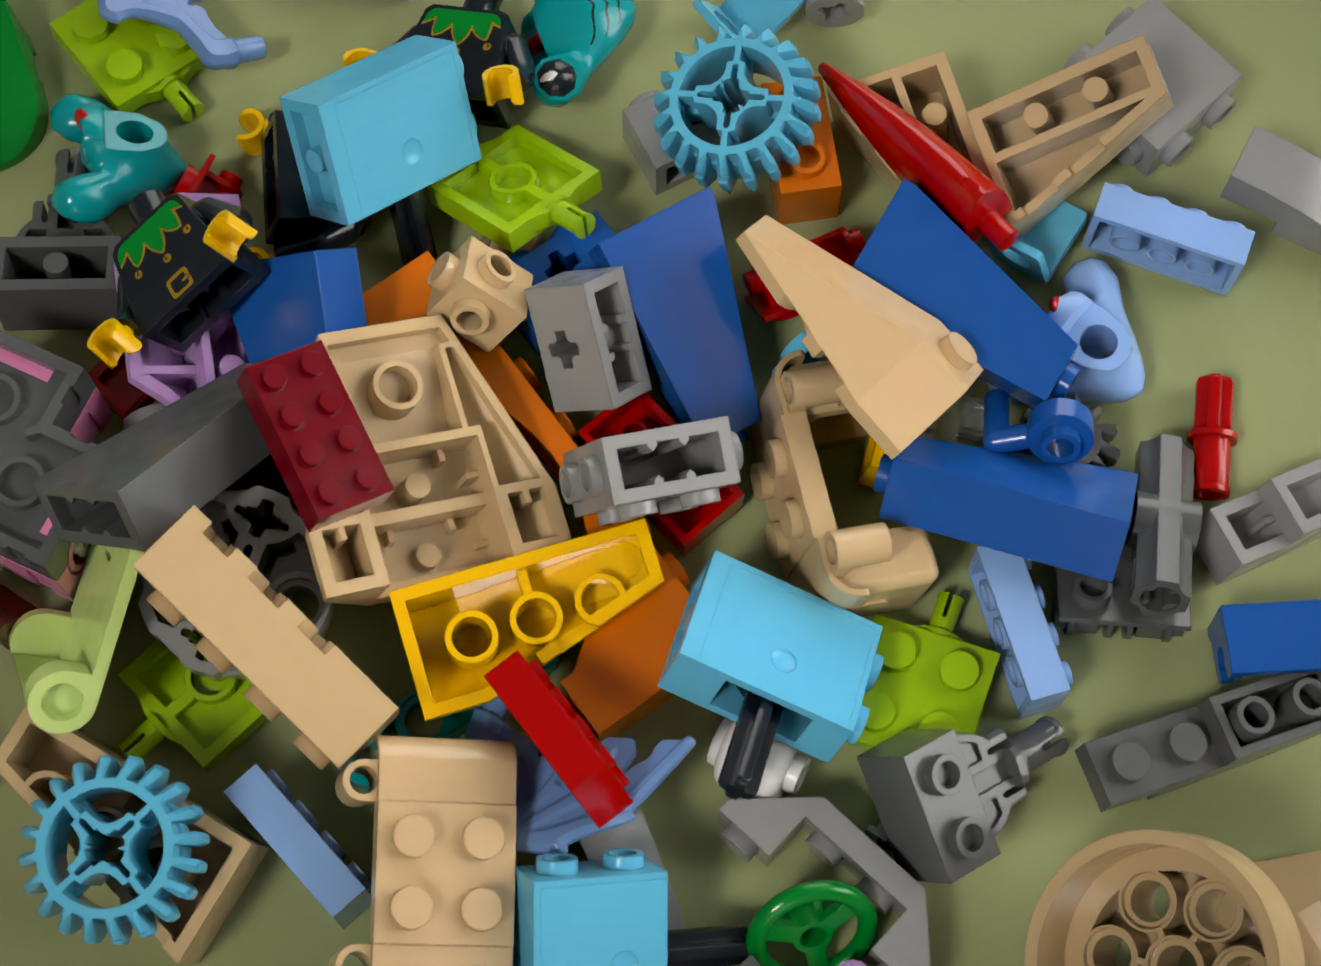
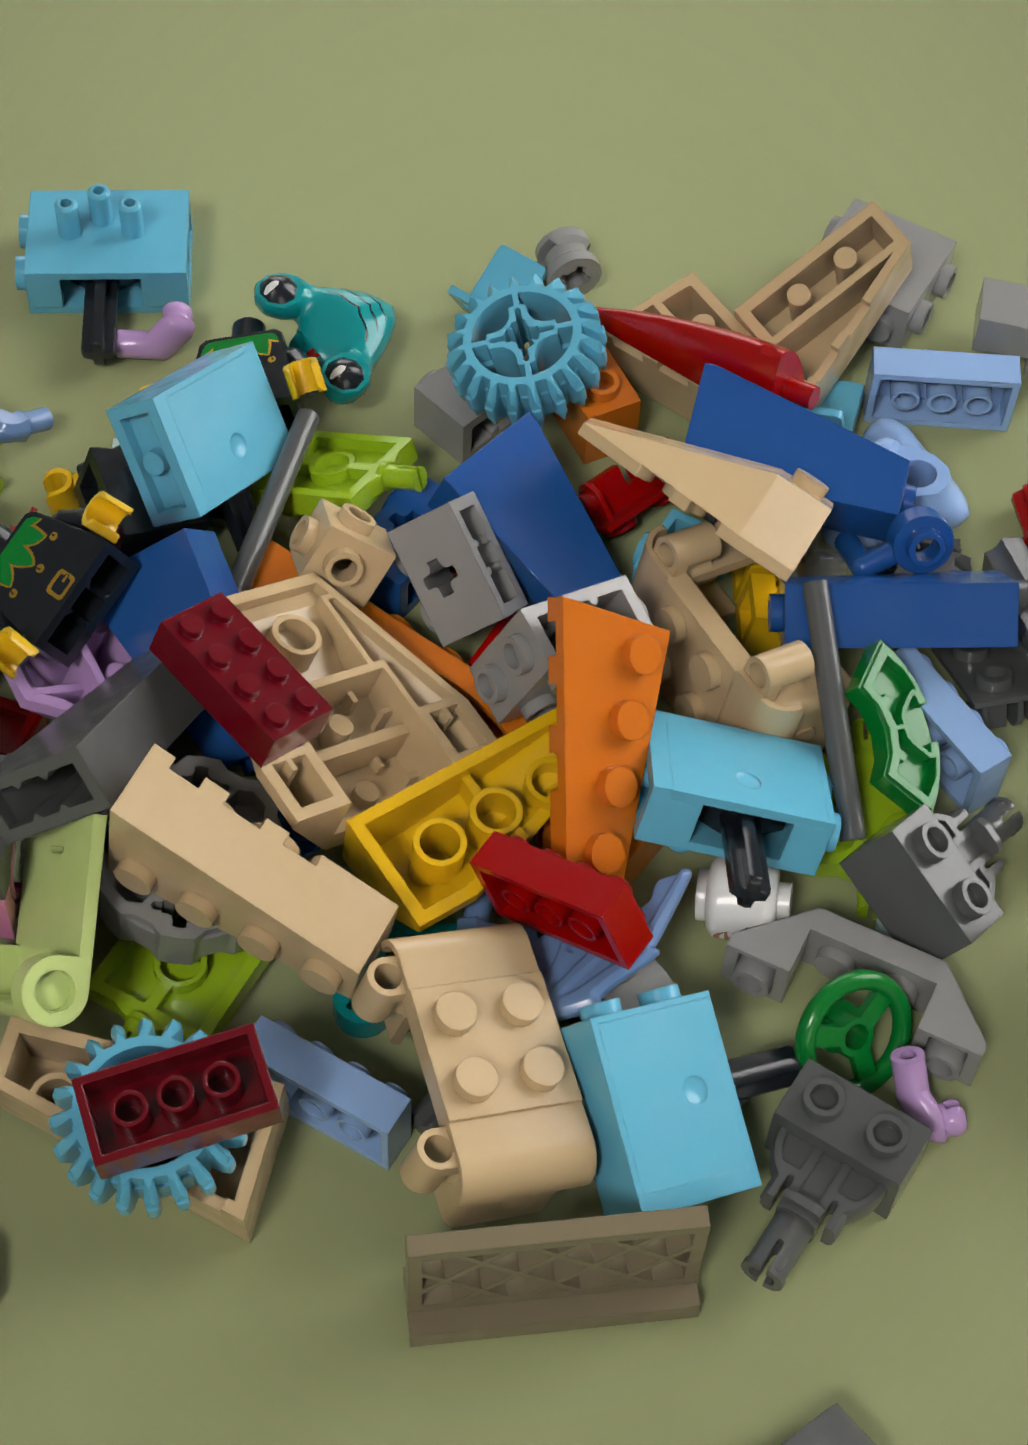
camera: 20 degrees left, 15 degrees down
(125, 860) = (176, 1101): none -> dark red piece
(434, 216) = (274, 498): none -> dark grey bar
(657, 560) = (606, 708): none -> orange wing
(902, 599) = (833, 710): none -> dark grey bar
(965, 635) = (890, 704): none -> green tile

